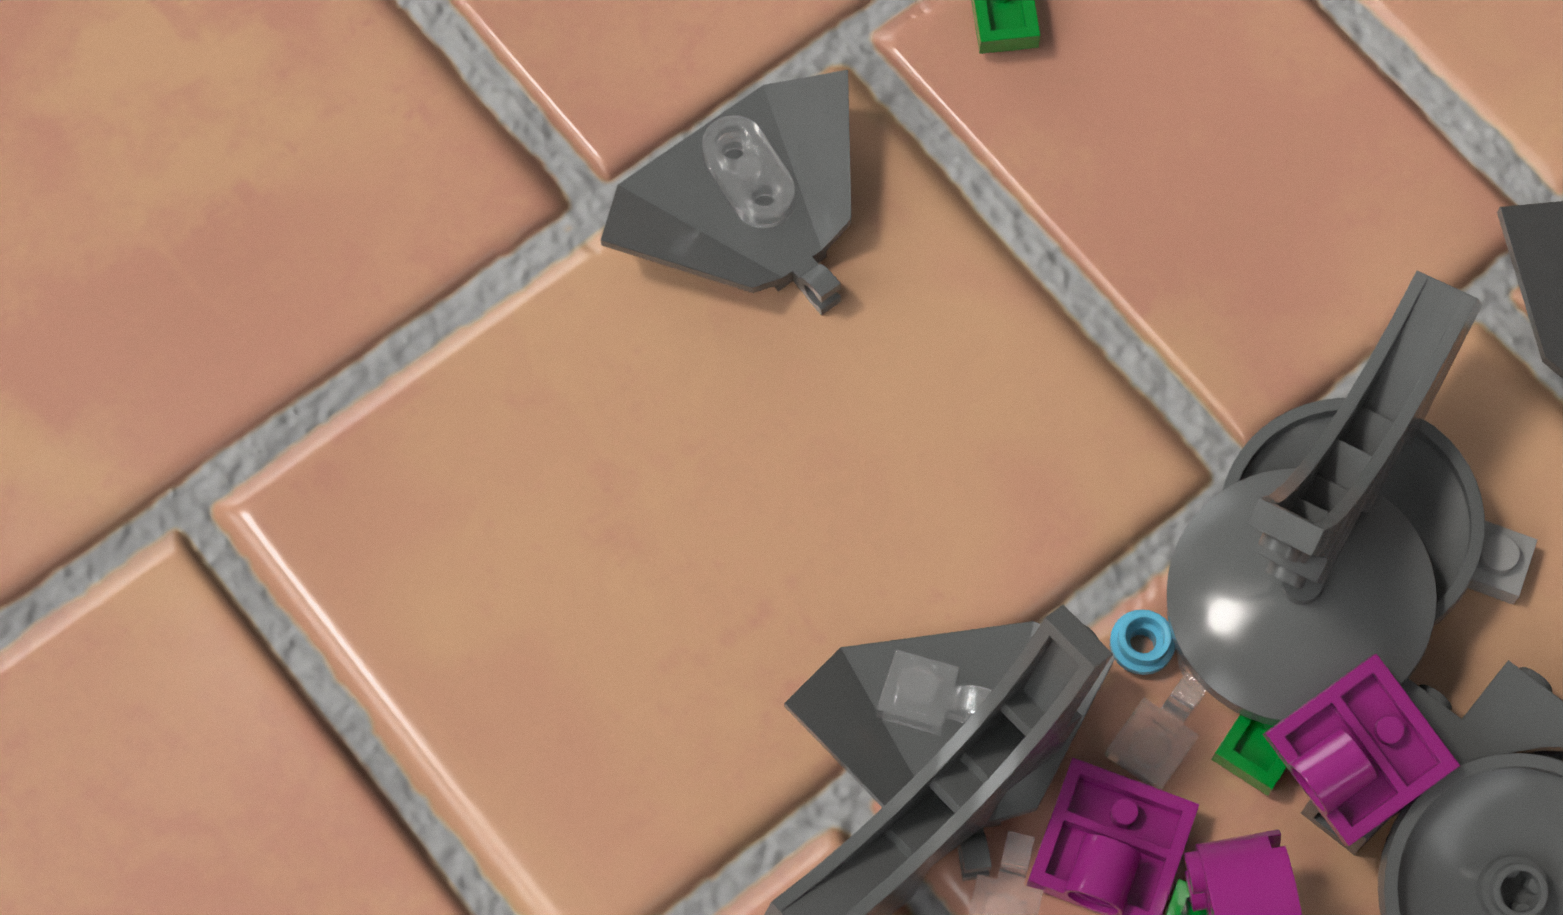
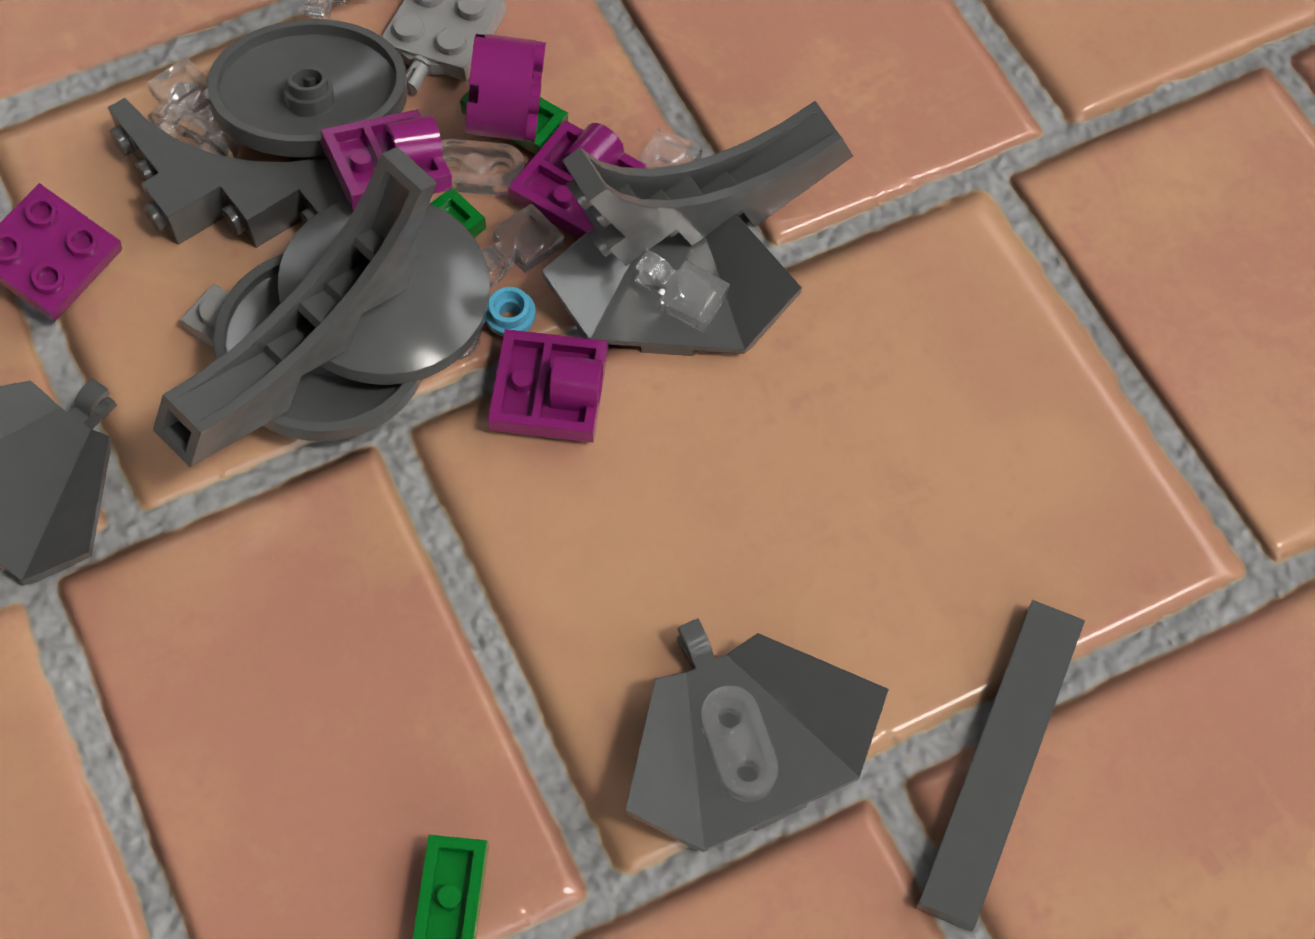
camera: 170 degrees left, 5 degrees down
(468, 243) = (1000, 766): none -> dark grey tile
(1065, 549) = (548, 385): none -> magenta plate
(1259, 817) = (478, 164): none -> clear plate

